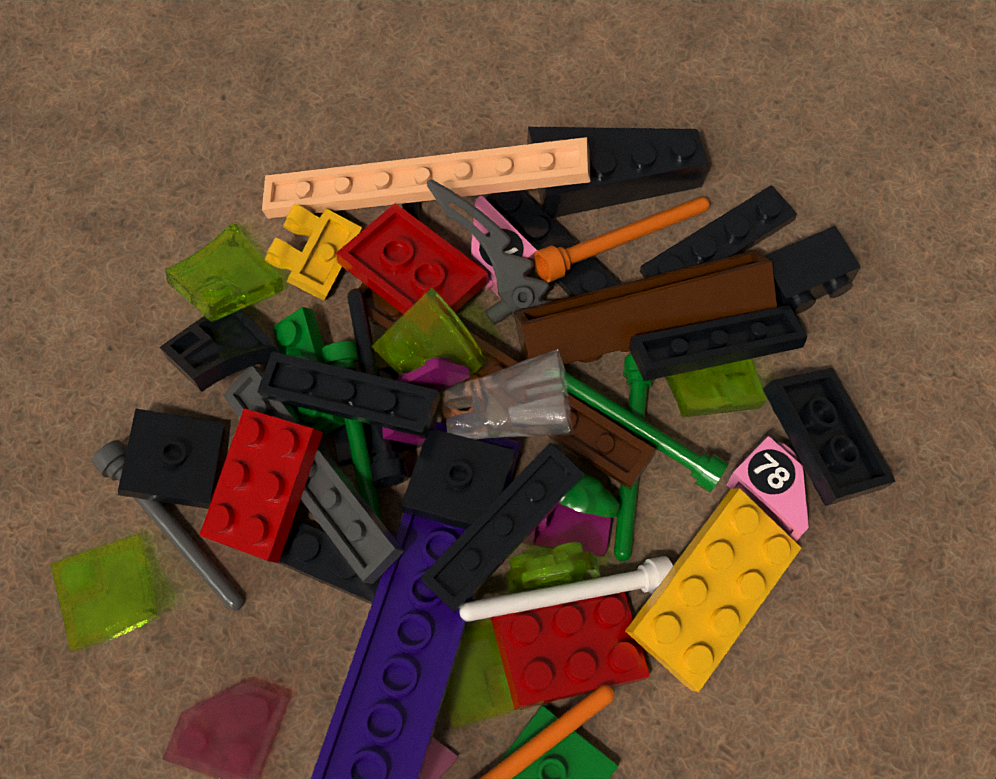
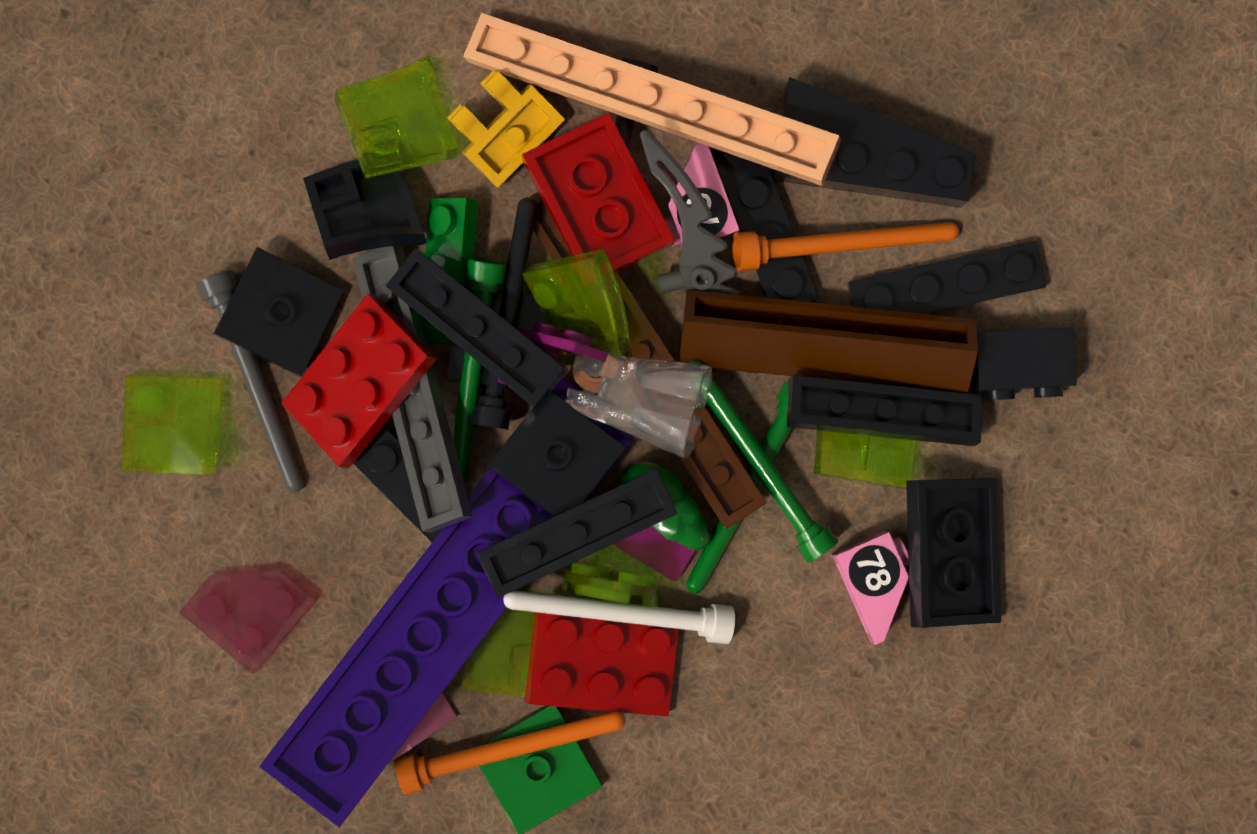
camera: 20 degrees right, 20 degrees up
(713, 590) = (767, 659): yellow plate -> none

